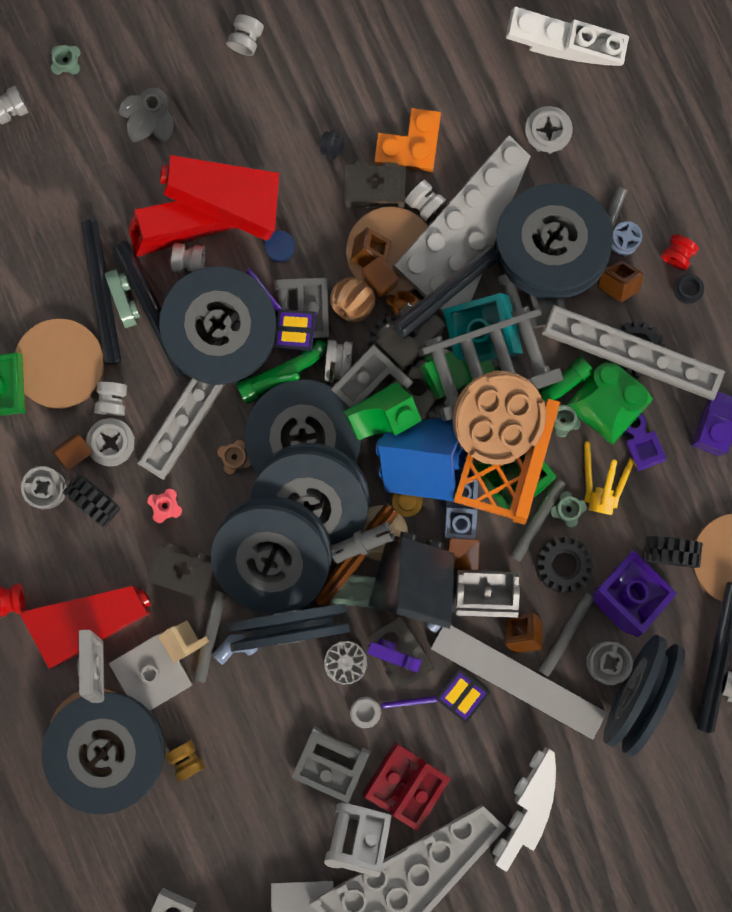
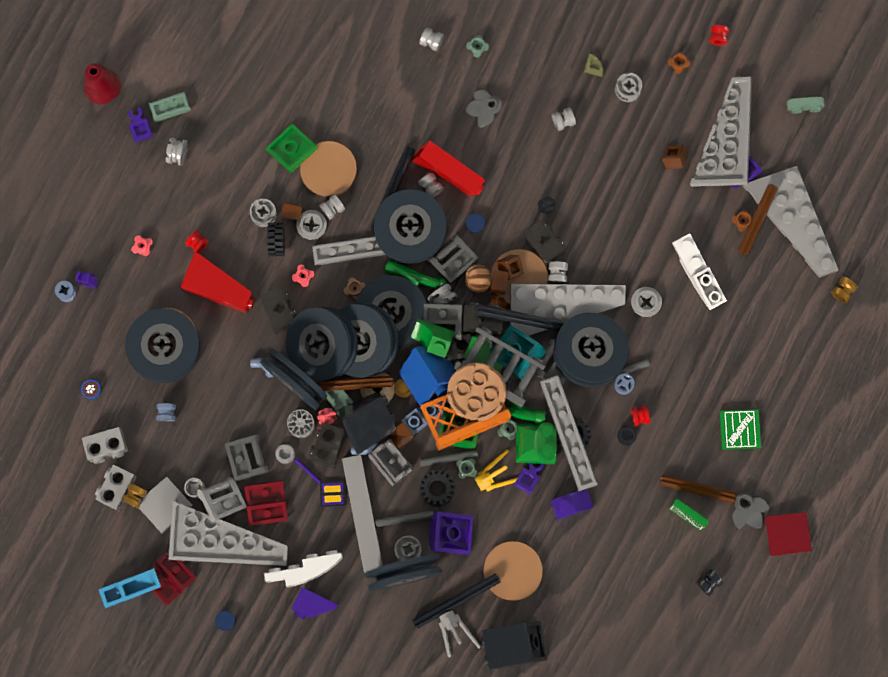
camera: 50 degrees right, 5 degrees down
(80, 885) = (91, 389): none -> tile
(91, 666) = (198, 303): light grey plate -> none
(101, 292) = (380, 158): black axle -> none
(118, 286) = (388, 165): sand green plate -> none
(150, 674) = (219, 337): light grey plate -> none
(181, 641) = (245, 337): tan panel -> none
(188, 767) = (190, 392): pearl gold wheel -> none
(189, 817) = (165, 412): none -> sand blue wheel
(211, 633) = (258, 350): dark grey bar -> none
(224, 191) = (475, 175): red slope -> none
(293, 327) = (440, 262): piece -> none
(313, 864) = (191, 487): none -> light grey wheel
(362, 542) = (363, 379): dark grey pin -> none
(364, 623) = (327, 416): none -> coral plate
(386, 651) = (322, 434): dark purple plate -> none
(417, 149) = (579, 247): orange plate -> none
(524, 633) = (387, 497): reddish brown slope -> none
(580, 836) = (311, 604): none -> dark purple slope
(621, 281) = (601, 399): reddish brown slope -> none
(673, 551) = (487, 533): black tyre -> none

